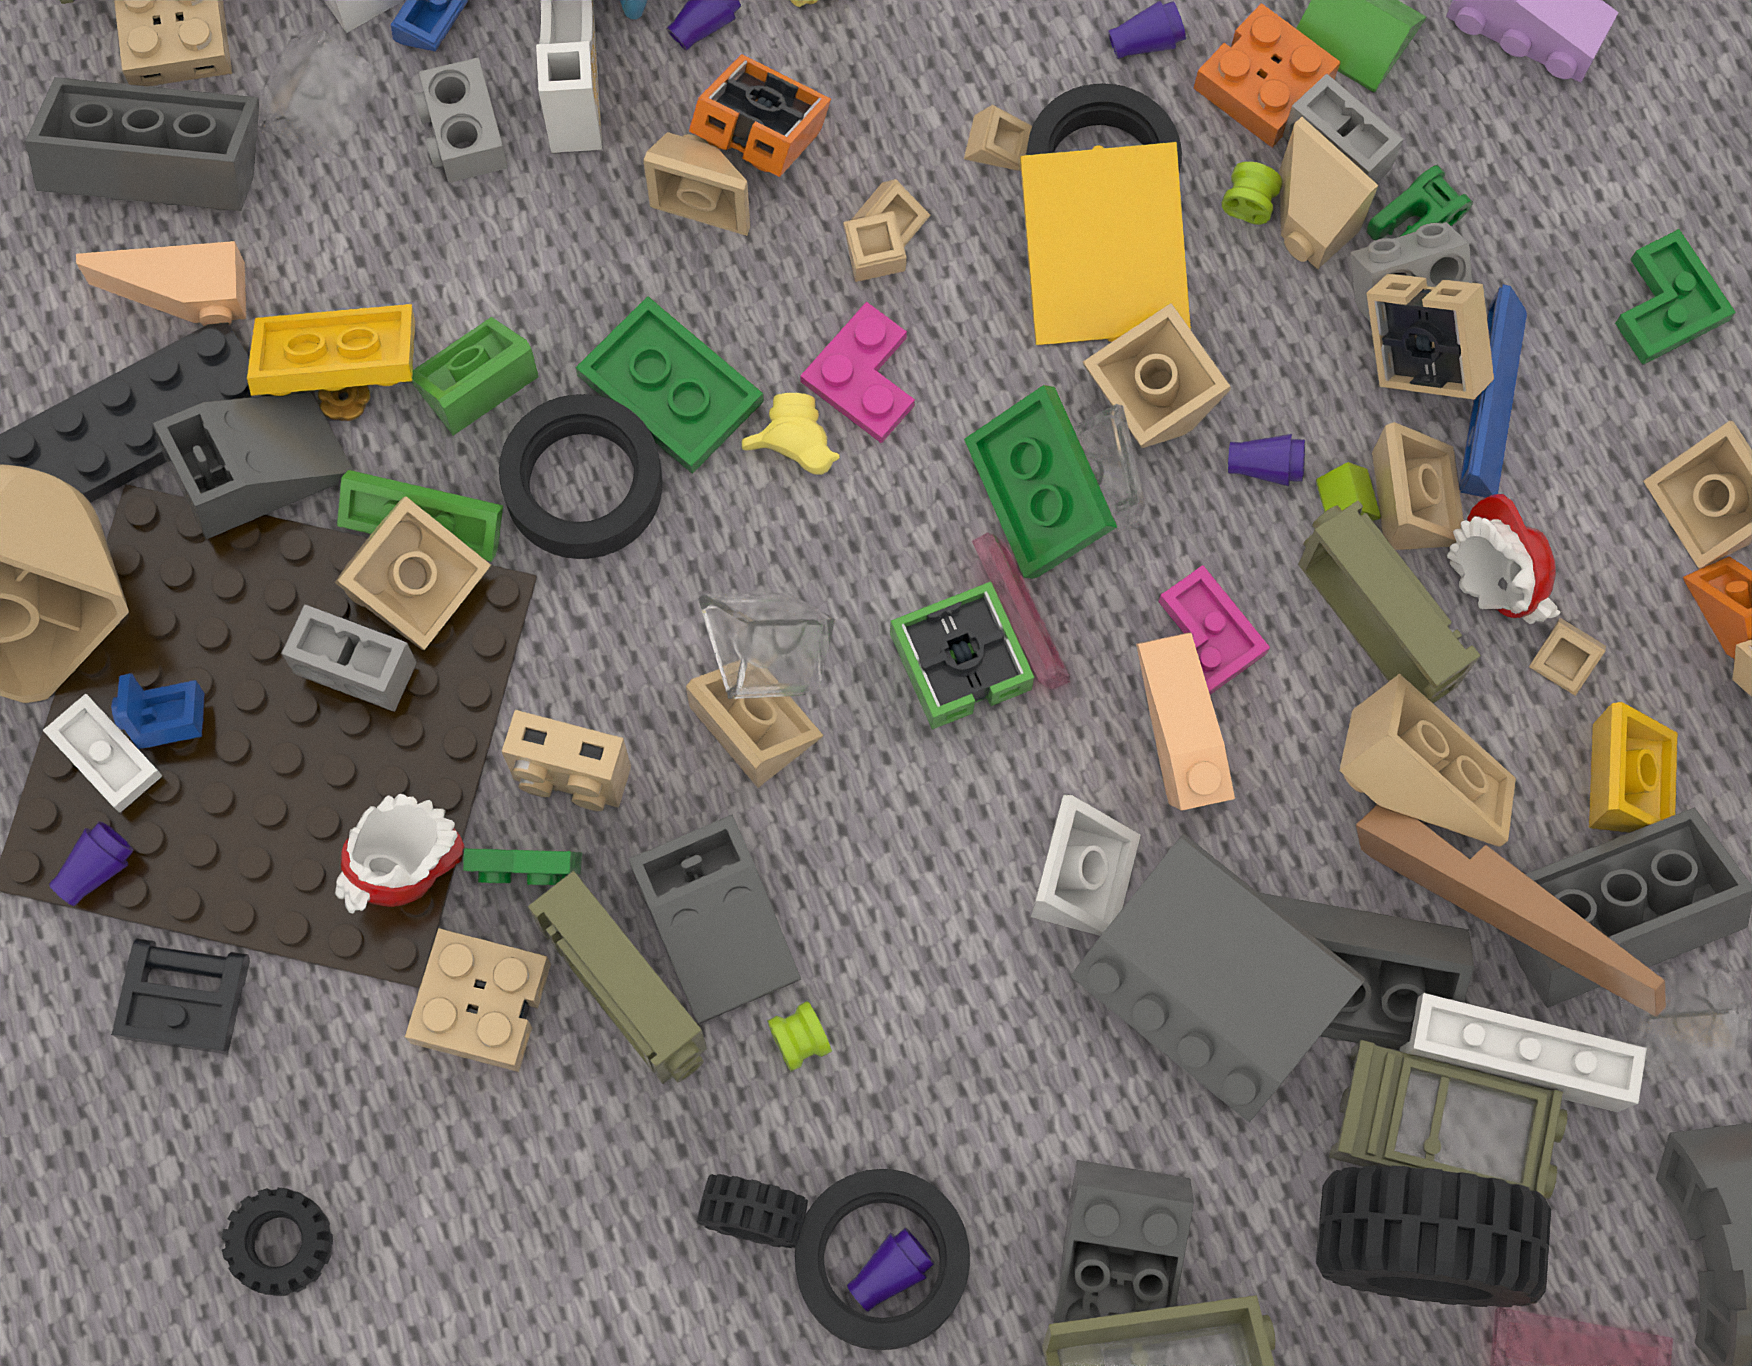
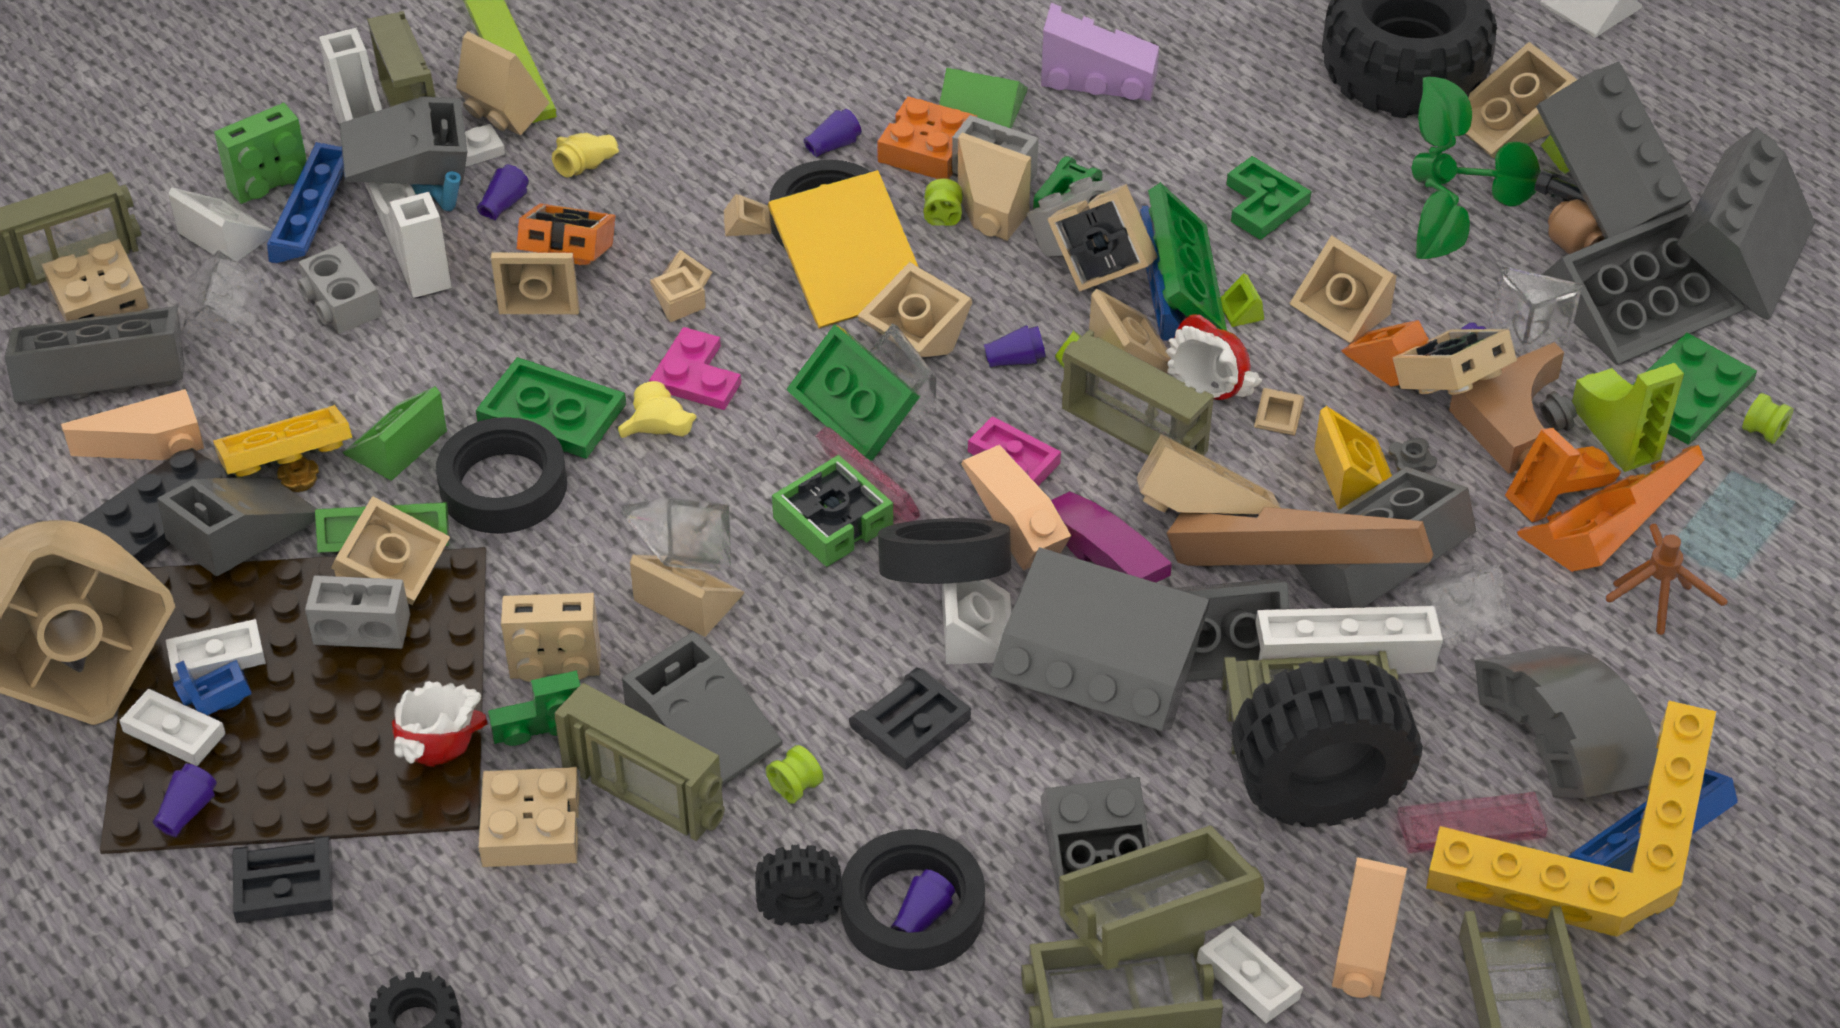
camera: 15 degrees left, 25 degrees down
(178, 654) = (215, 648): none -> white plate
(970, 1007) = (919, 725): none -> black plate
(1064, 819) = (944, 550): none -> black tyre
(1277, 805) = (1109, 540): none -> magenta slope
(1529, 391) = (1185, 258): none -> green plate
(1580, 467) = (1242, 303): none -> lime slope
(1700, 791) = (1413, 455): none -> dark grey plate

